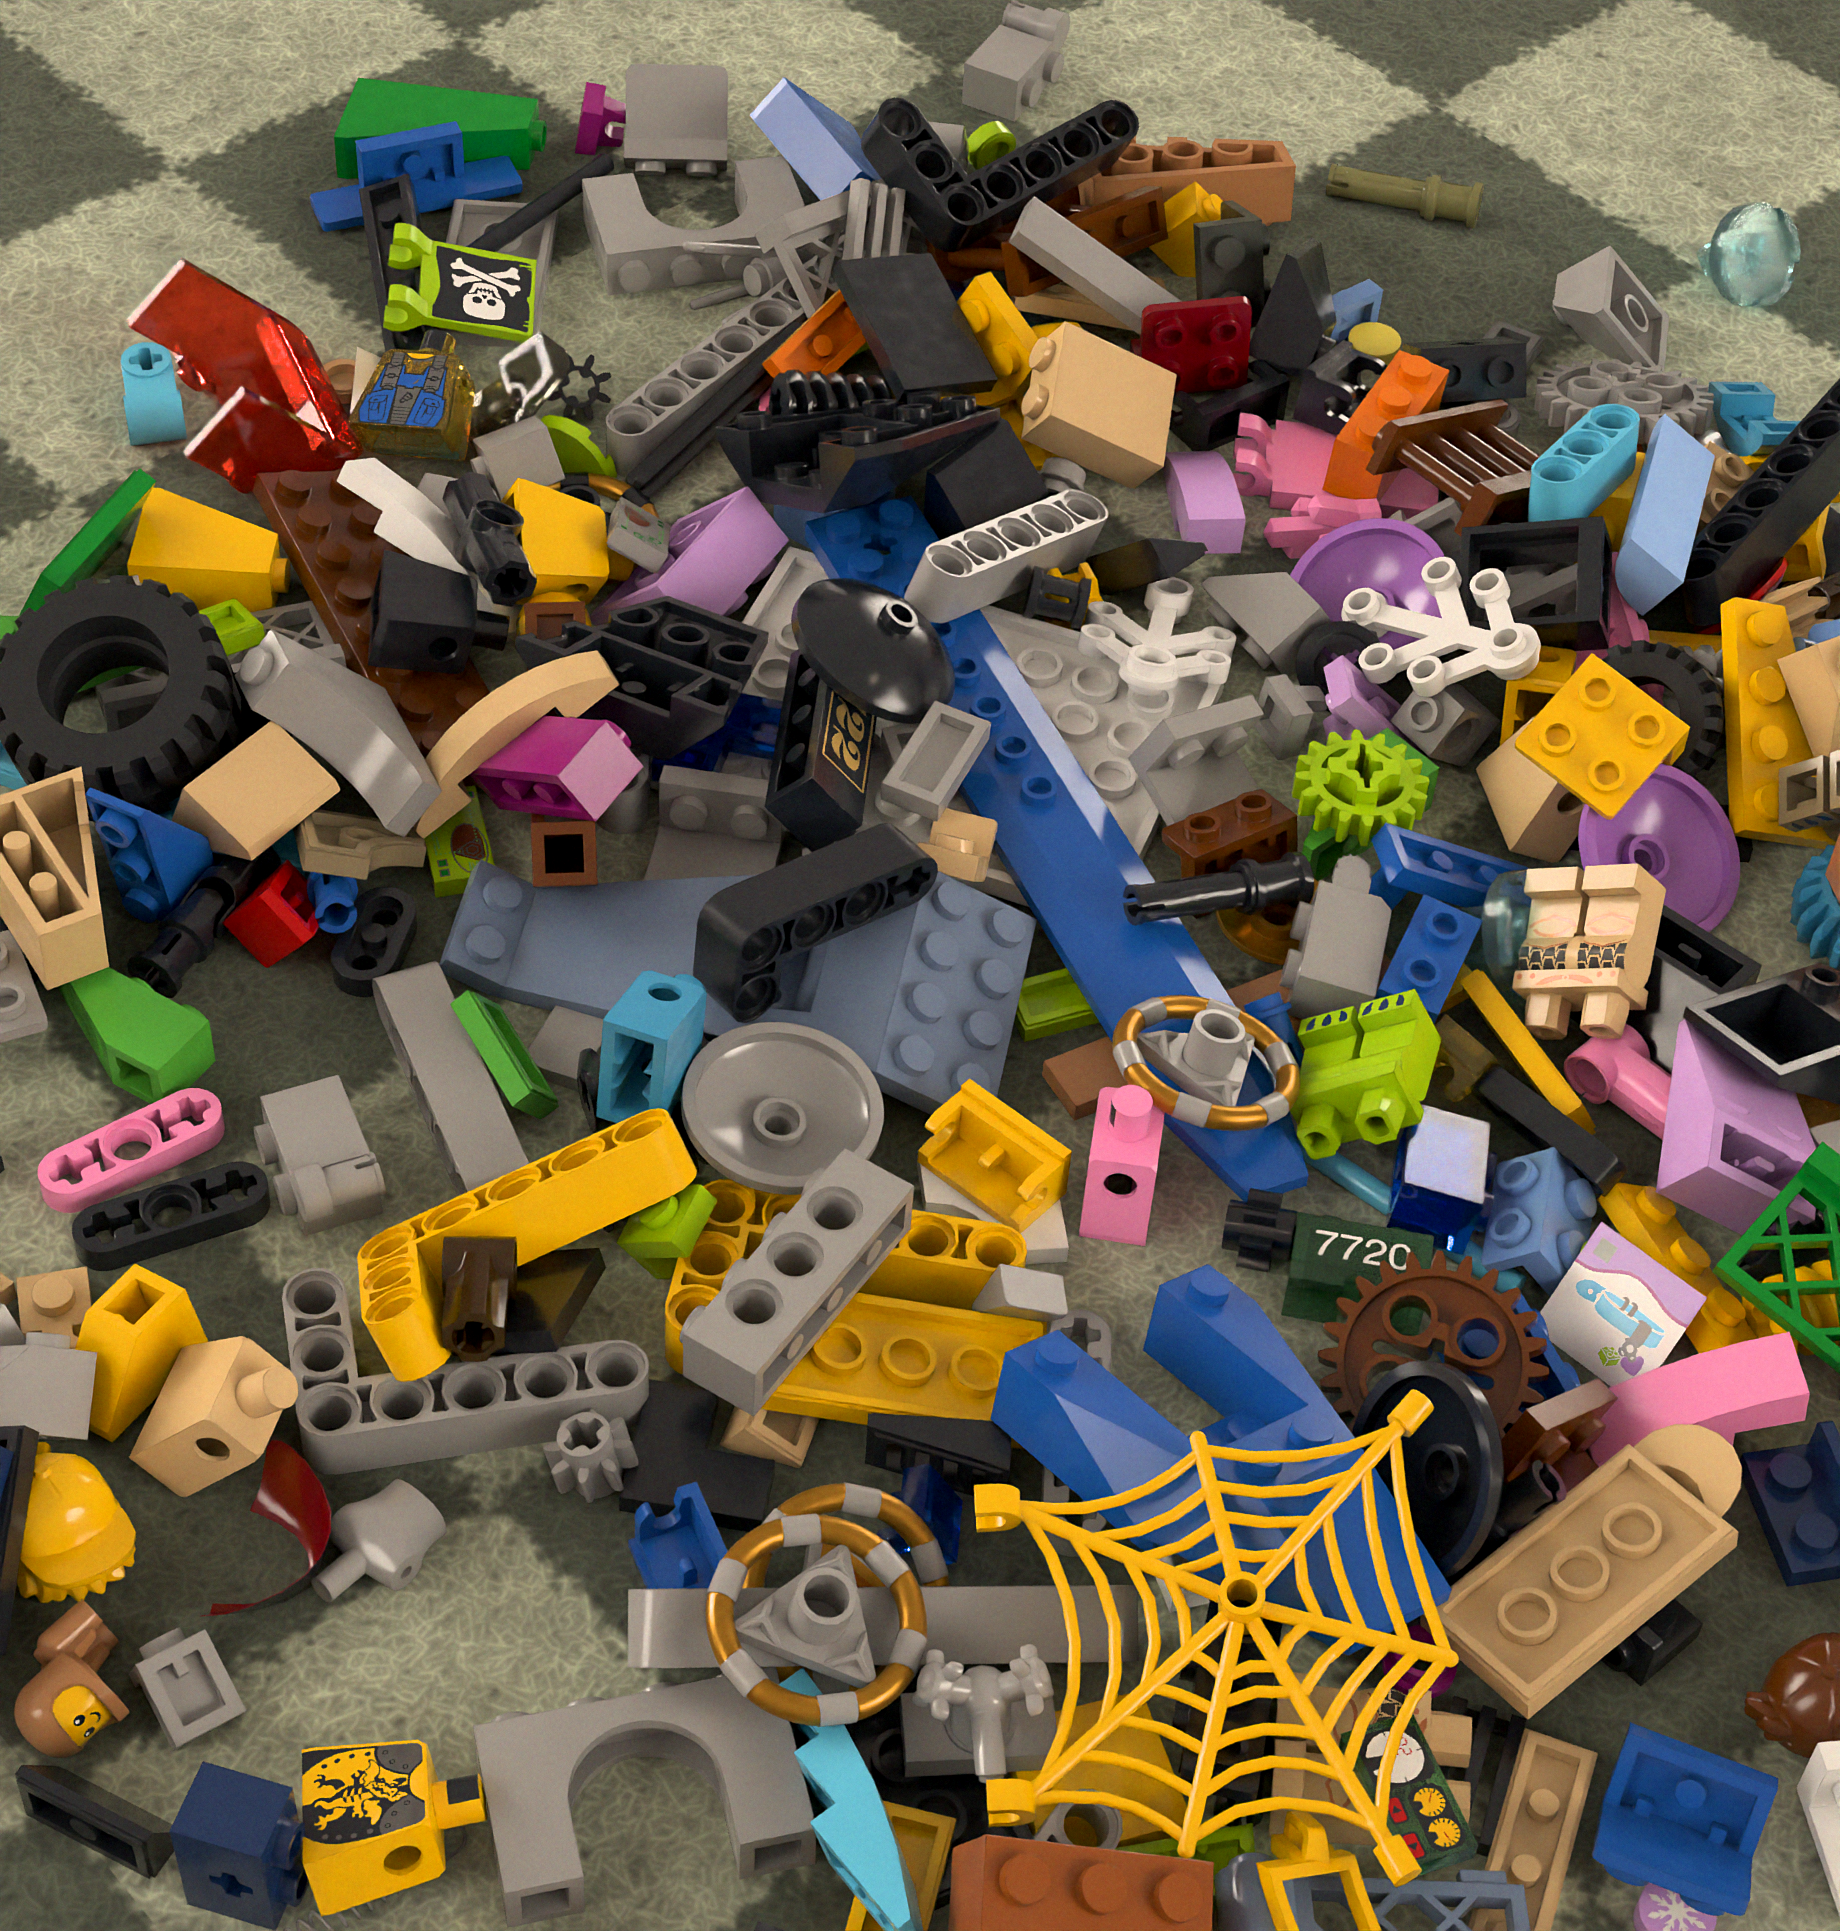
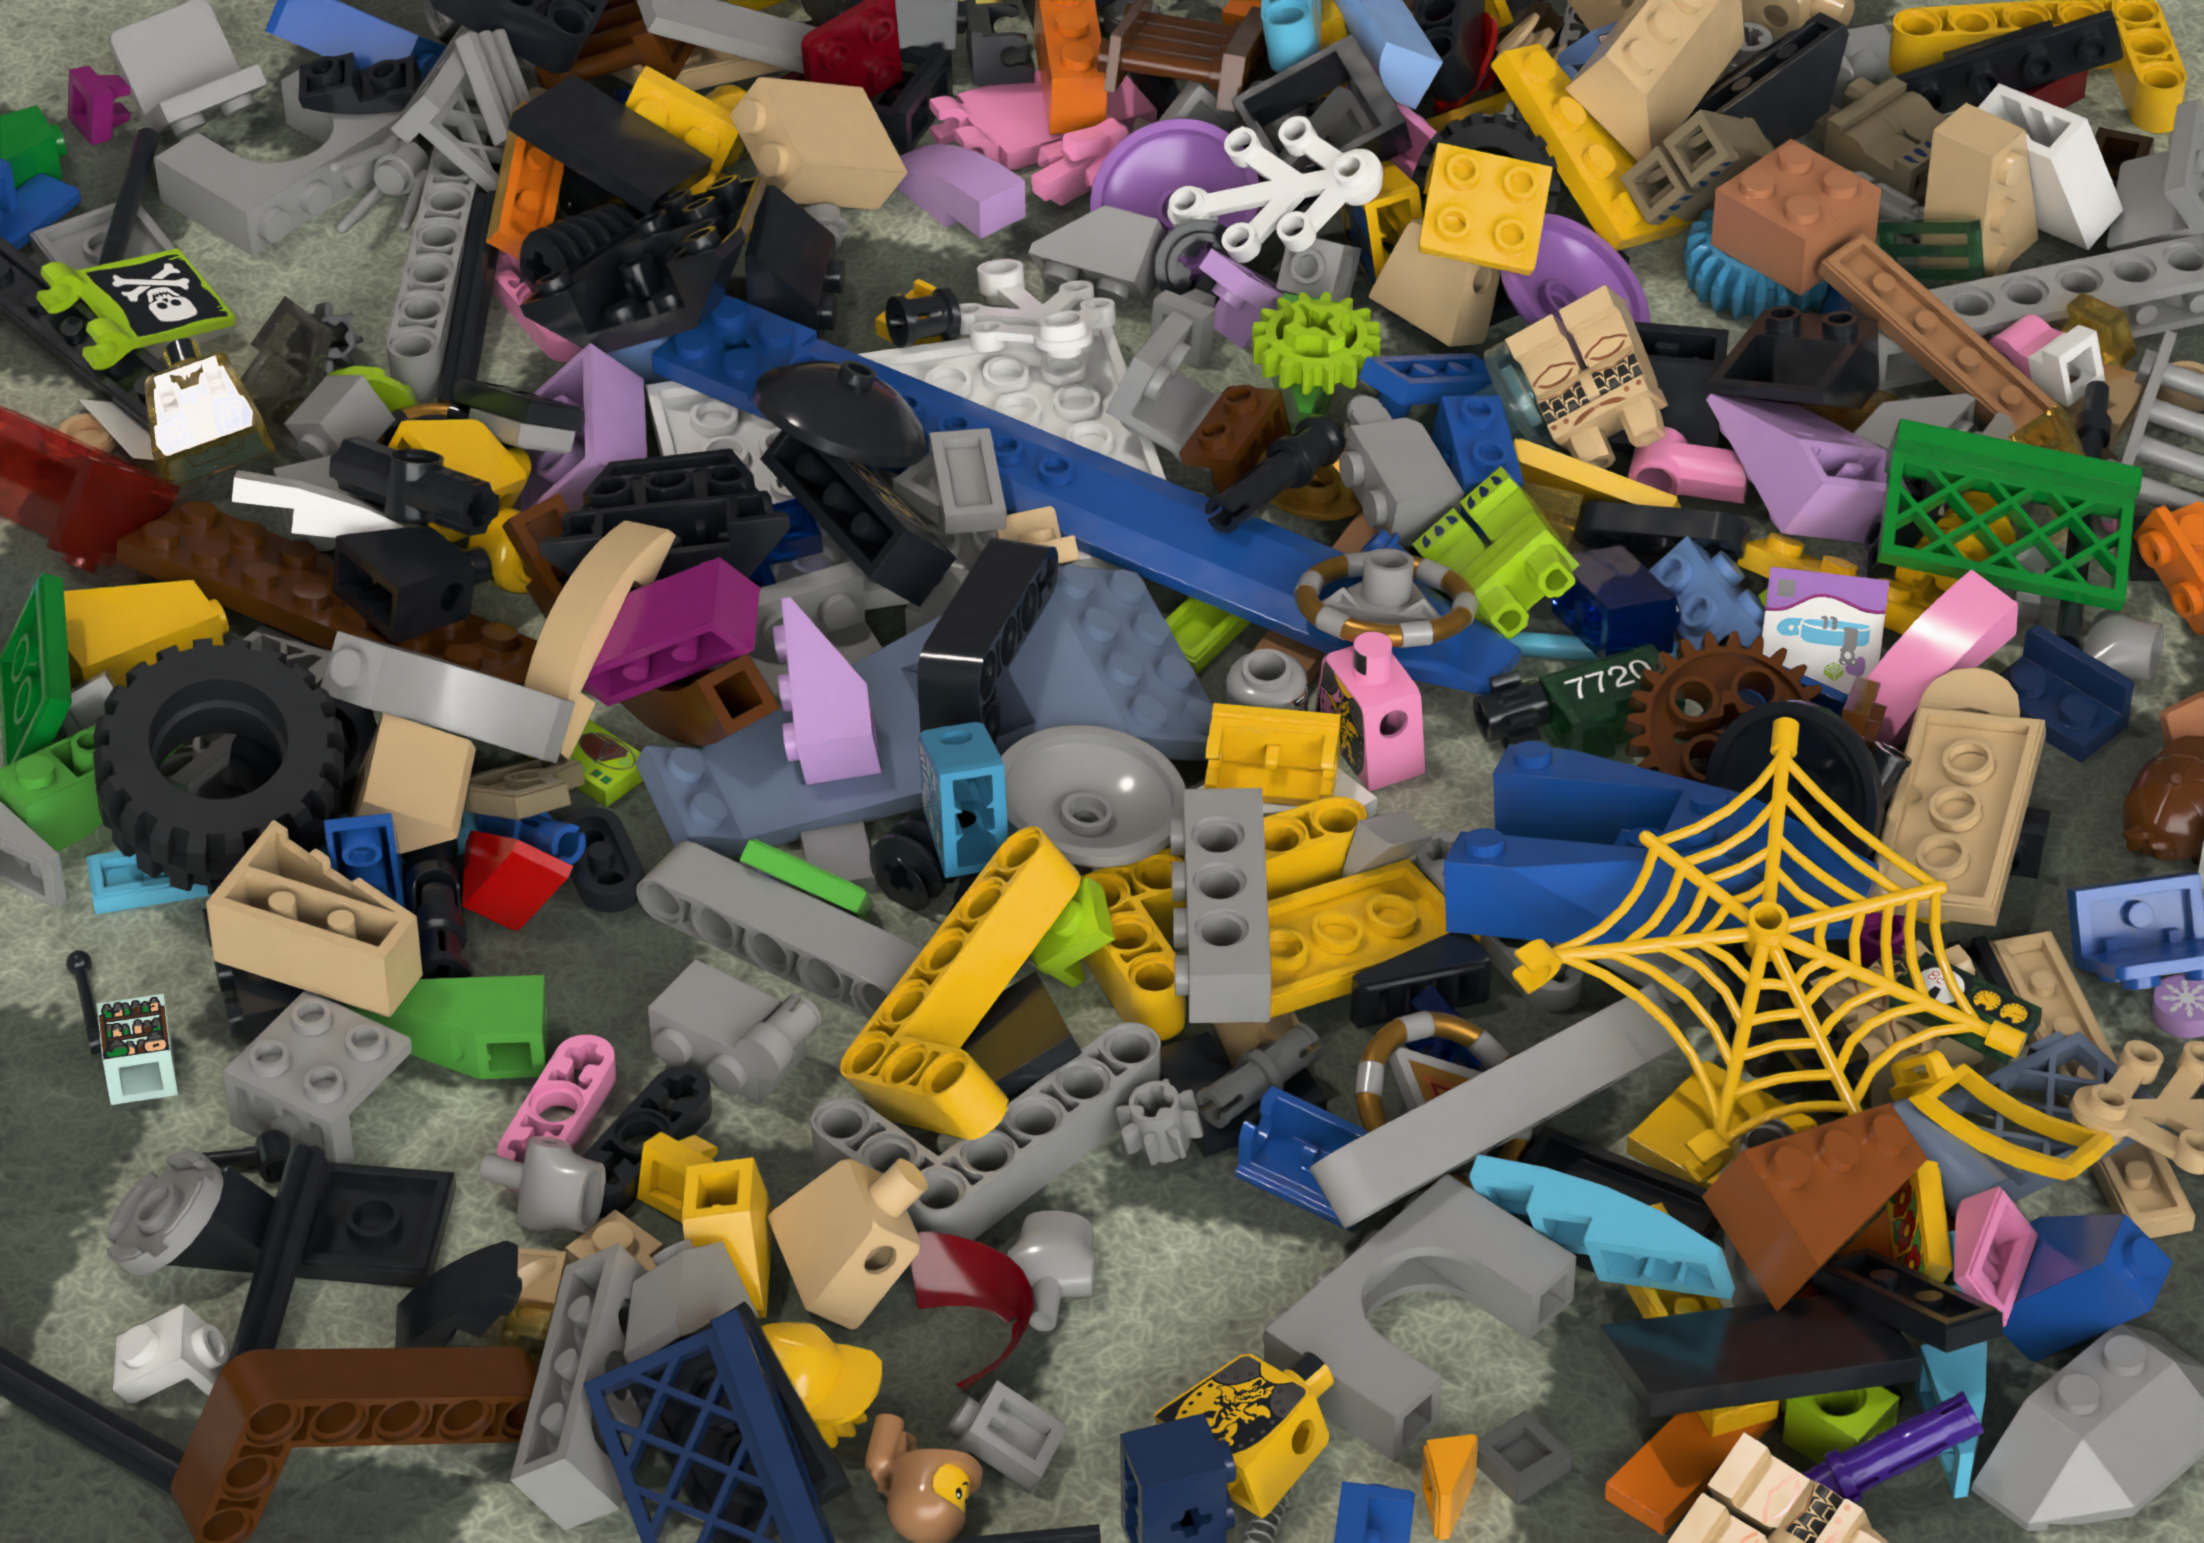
camera: 30 degrees left, 5 degrees down
(47, 1218) = (553, 1185): none -> light grey piece
(166, 1255) = (665, 1170): none -> yellow tile
(476, 1288) = (984, 1029): dark brown piece -> none
(643, 907) = (829, 703): none -> lavender slope
(657, 512) = (518, 404): none -> black tile
(708, 1462) = (1257, 1072): none -> dark grey pin
(772, 186) = (343, 88): none -> black slope
(816, 1621) = (1474, 1106): light grey piece -> none
(978, 1719) = (1624, 1123): light grey piece -> none
(1000, 555) = (859, 293): light grey beam -> none
(1048, 1091) = (1268, 680): none -> light grey head
(1142, 563) = (971, 255): black slope -> none

